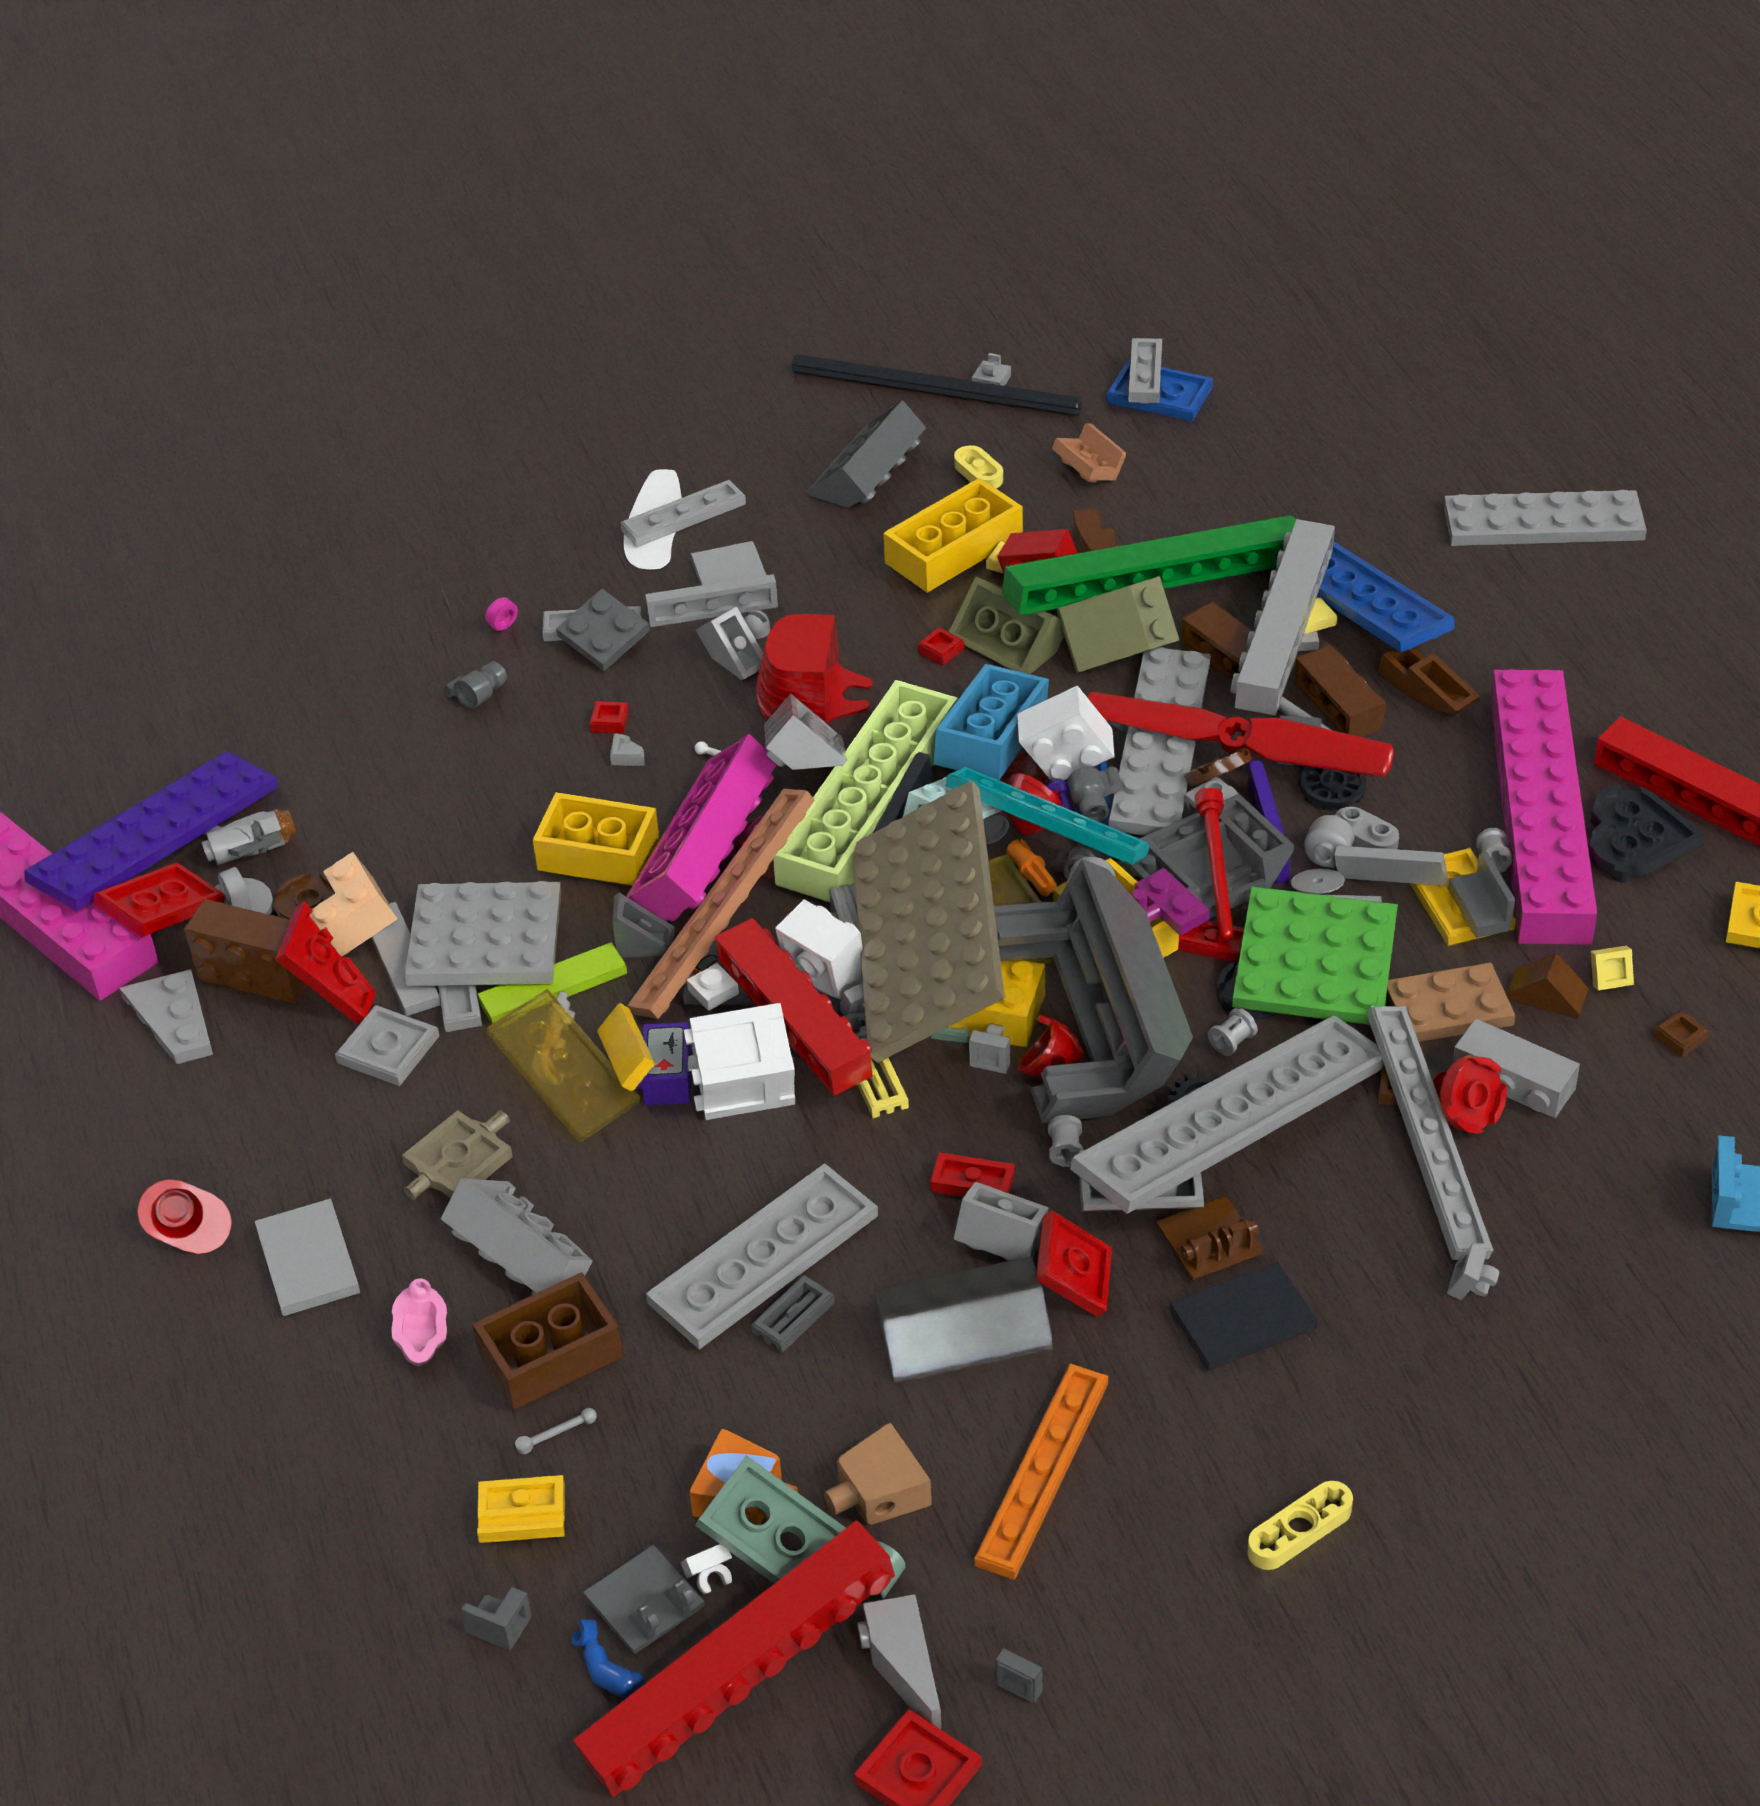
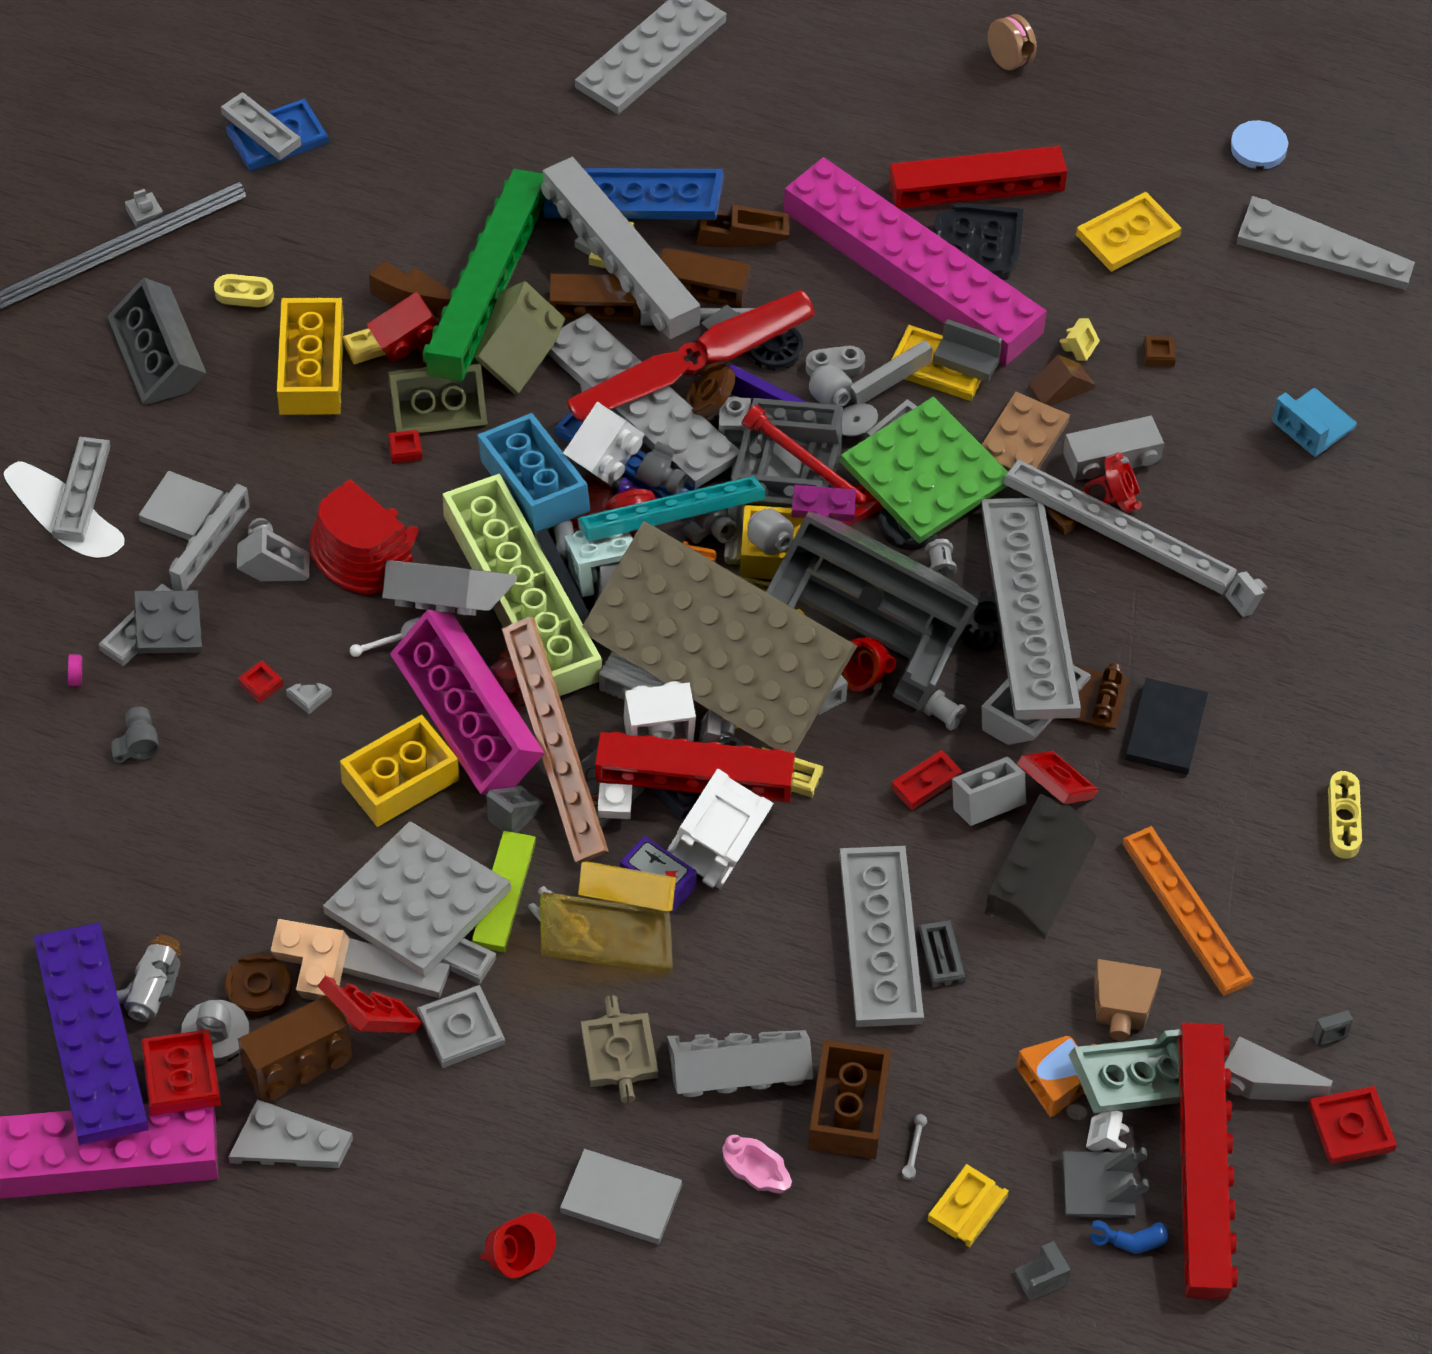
camera: 55 degrees left, 10 degrees up
(1091, 454) = (309, 220): nougat bracket -> none
(1496, 844) = (927, 315): light grey bush -> none

